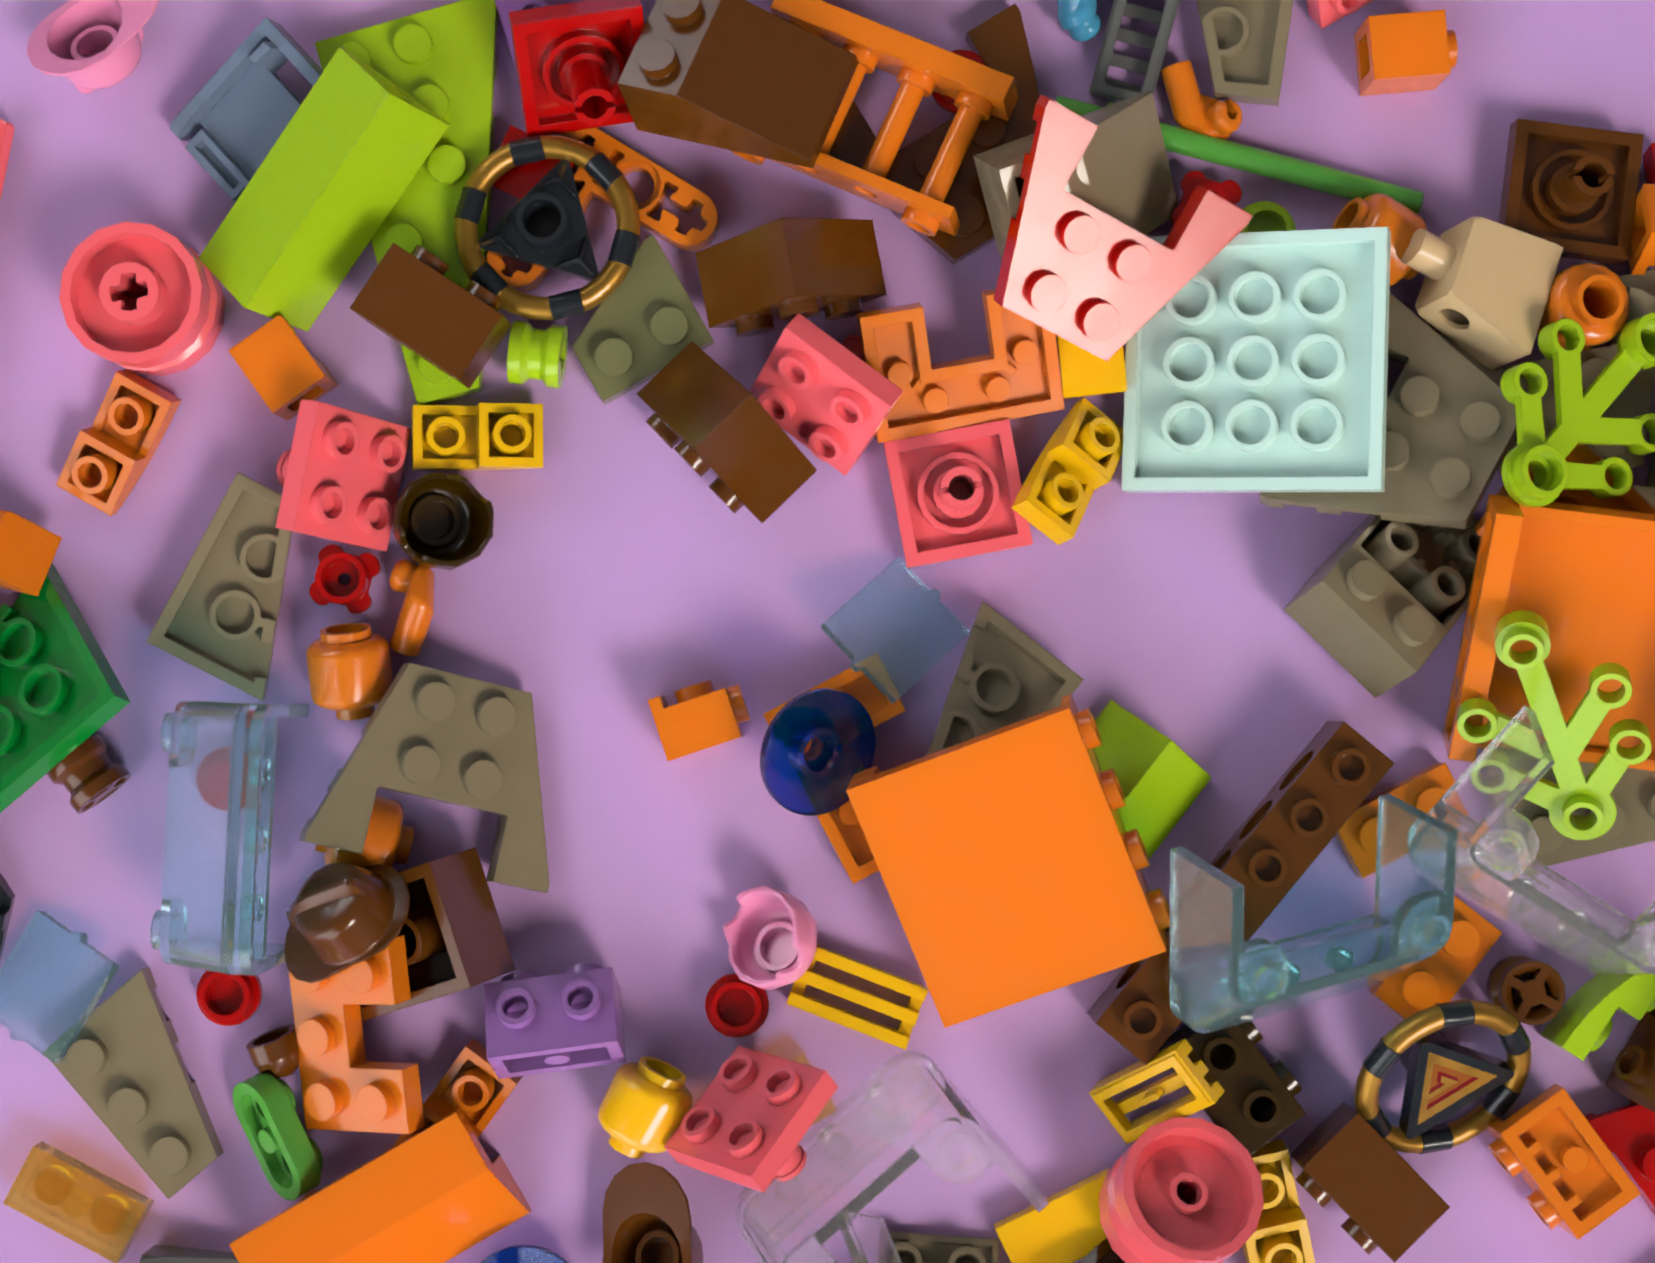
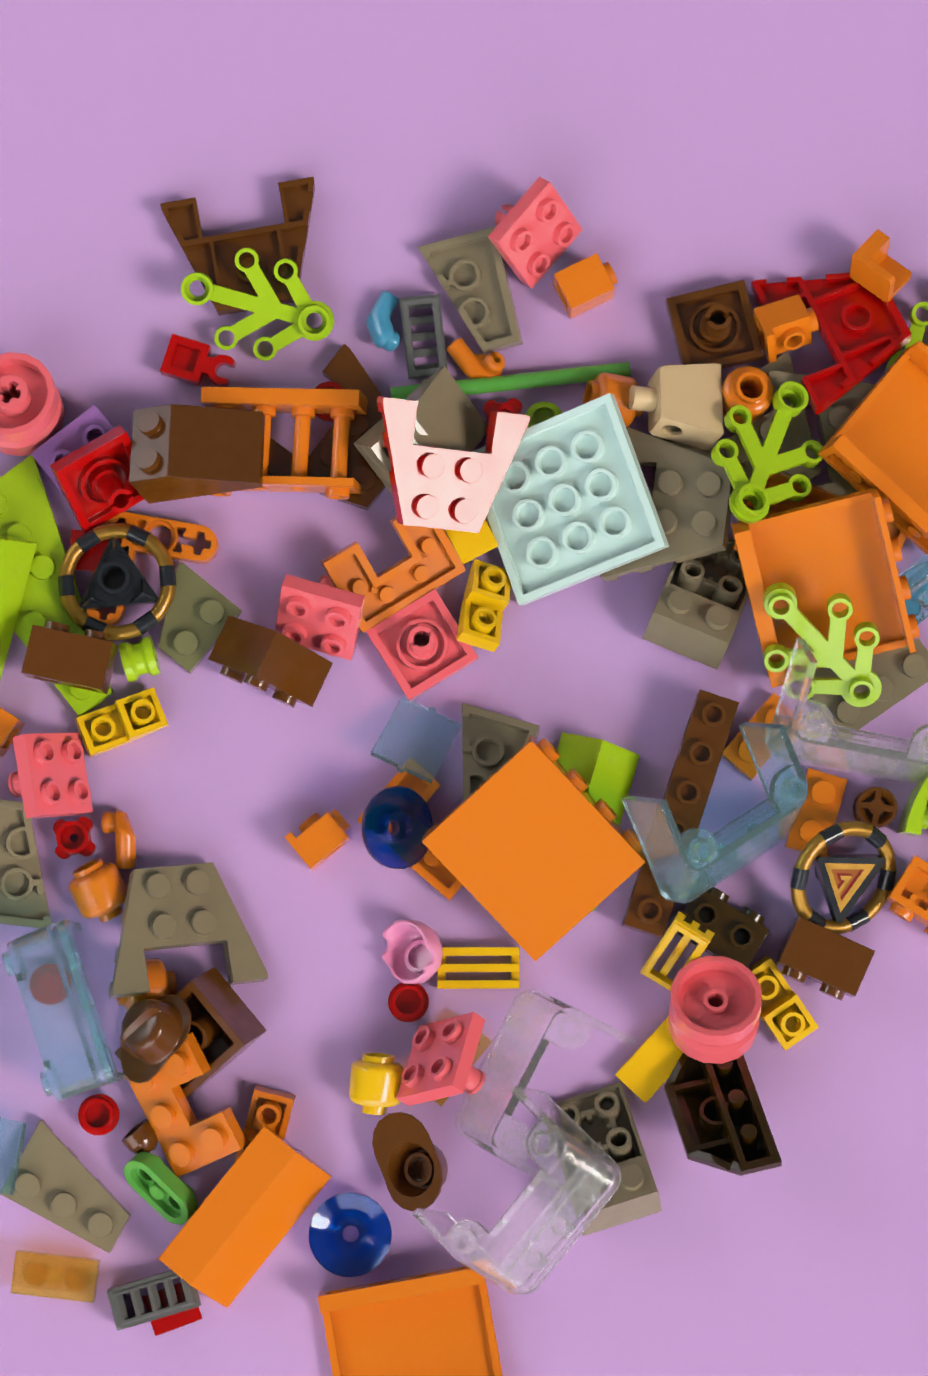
camera: 20 degrees left, 5 degrees down
(442, 521) = (121, 779): dark brown hair -> none
(554, 1021) = (302, 1052): medium lavender brick -> none
(790, 271) = (271, 552): reddish brown brick -> none

